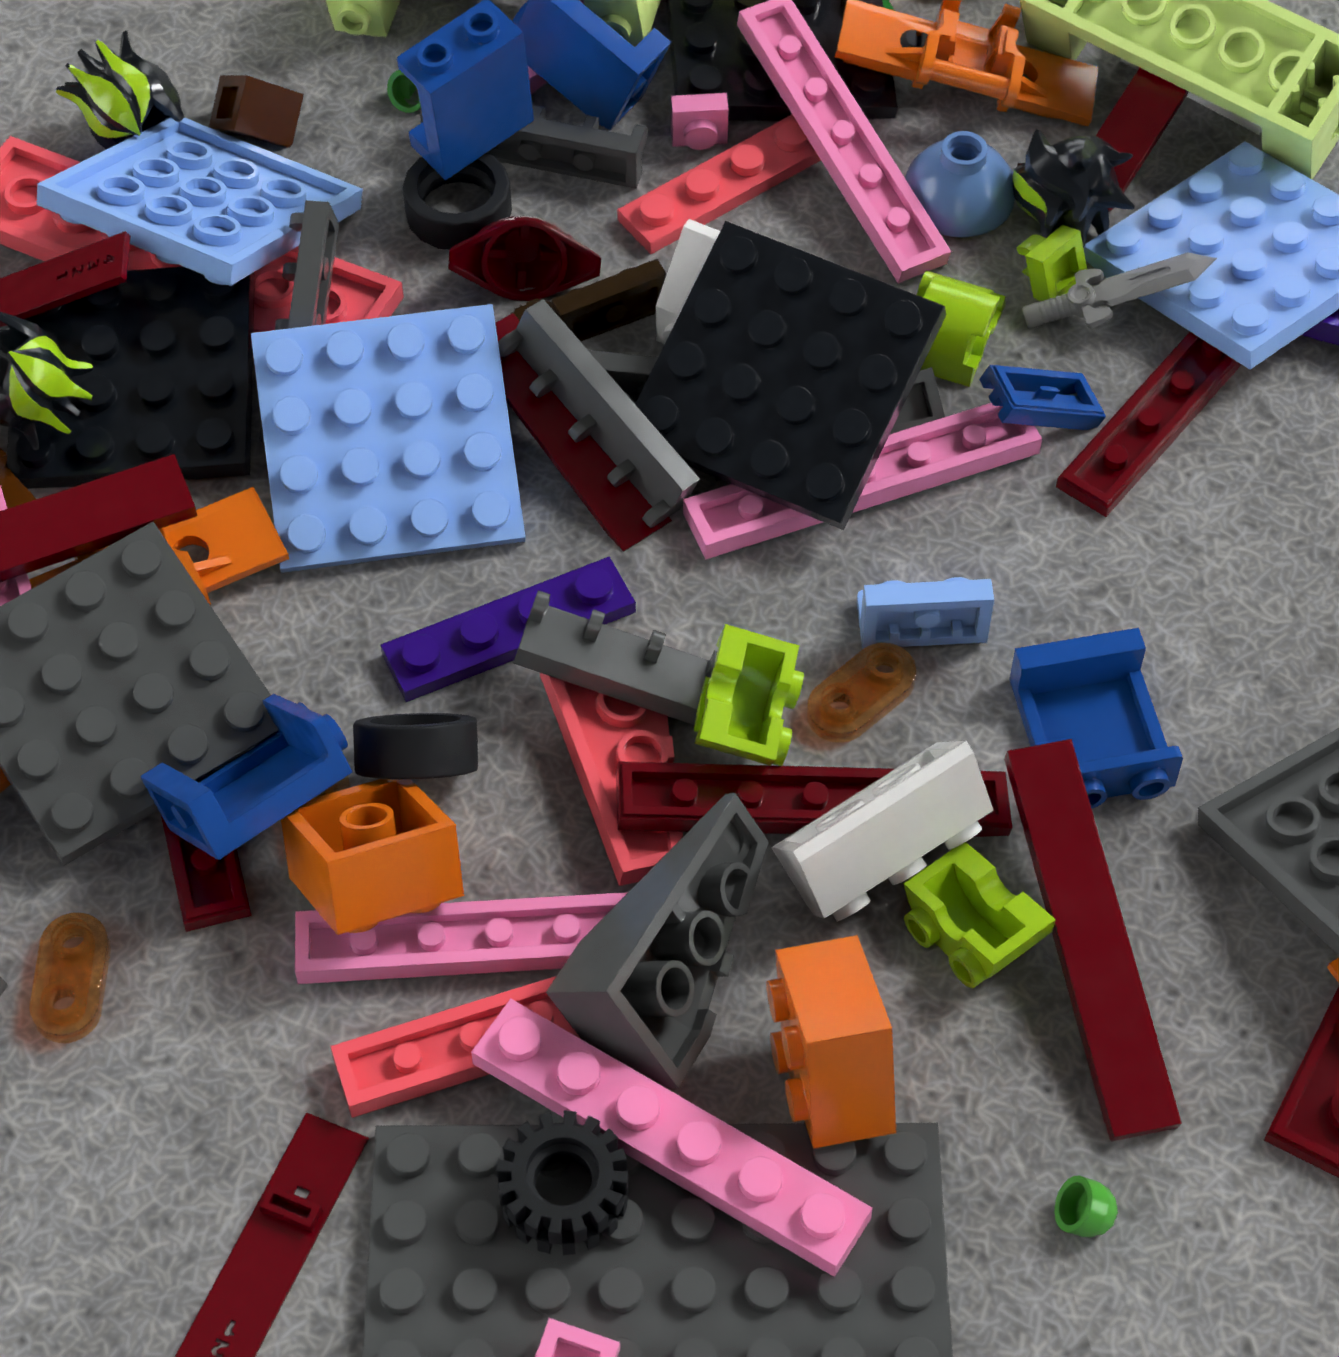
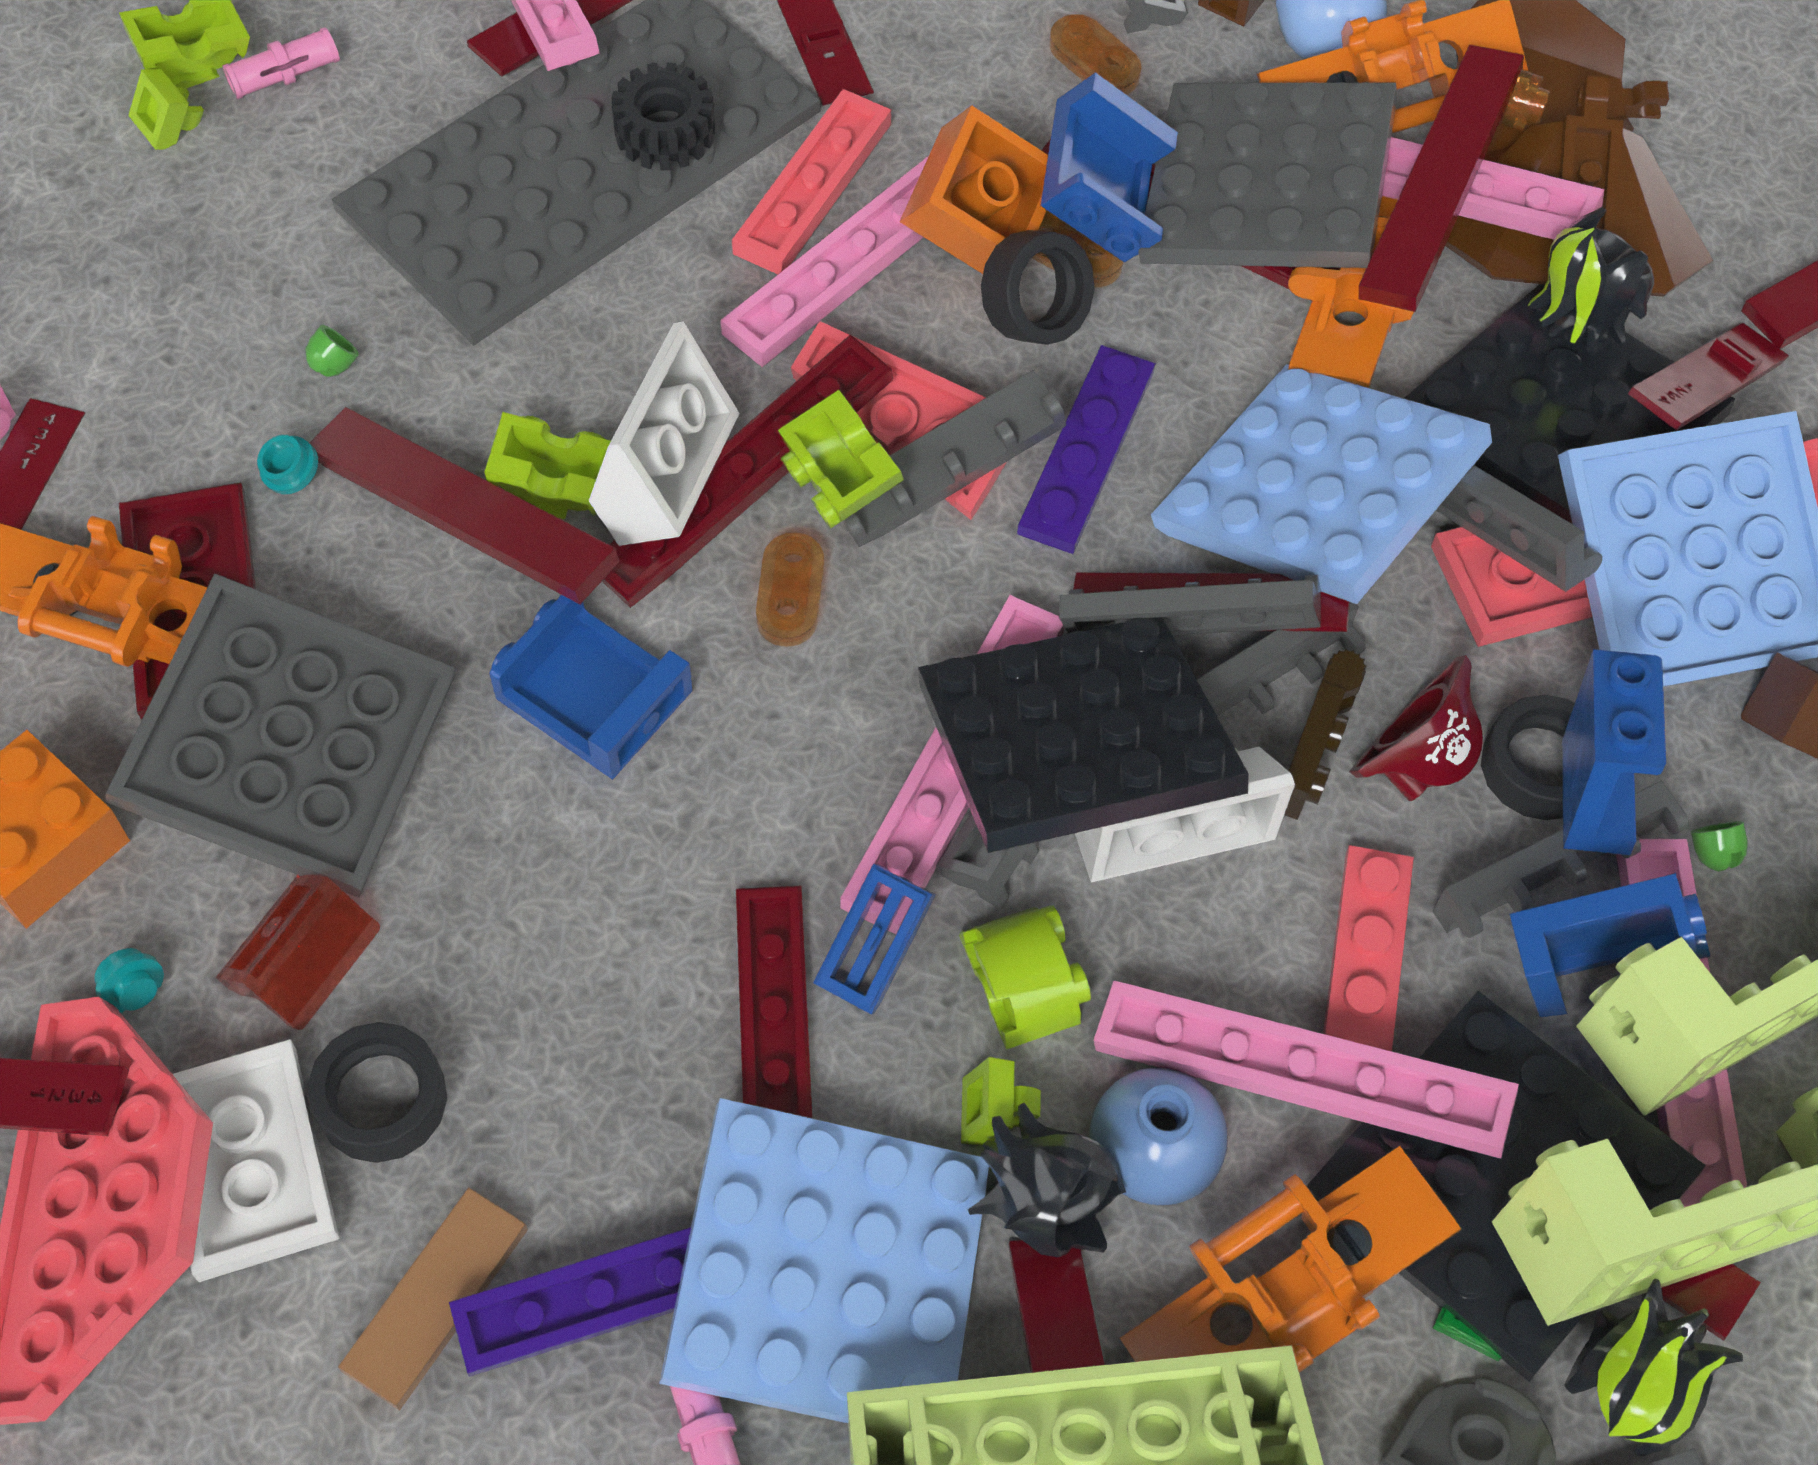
camera: 135 degrees right, 5 degrees up
(652, 963) = (731, 264): dark grey wedge -> none
(674, 1137) = (628, 192): bright pink plate -> none
(699, 120) = (1446, 997): bright pink plate -> none
(833, 1042) = (565, 283): orange brick -> none
(926, 612) = (795, 666): light blue bracket -> none
(1085, 300) = (905, 1104): light grey sword -> none
(1211, 1117) = (287, 463): none -> teal plate

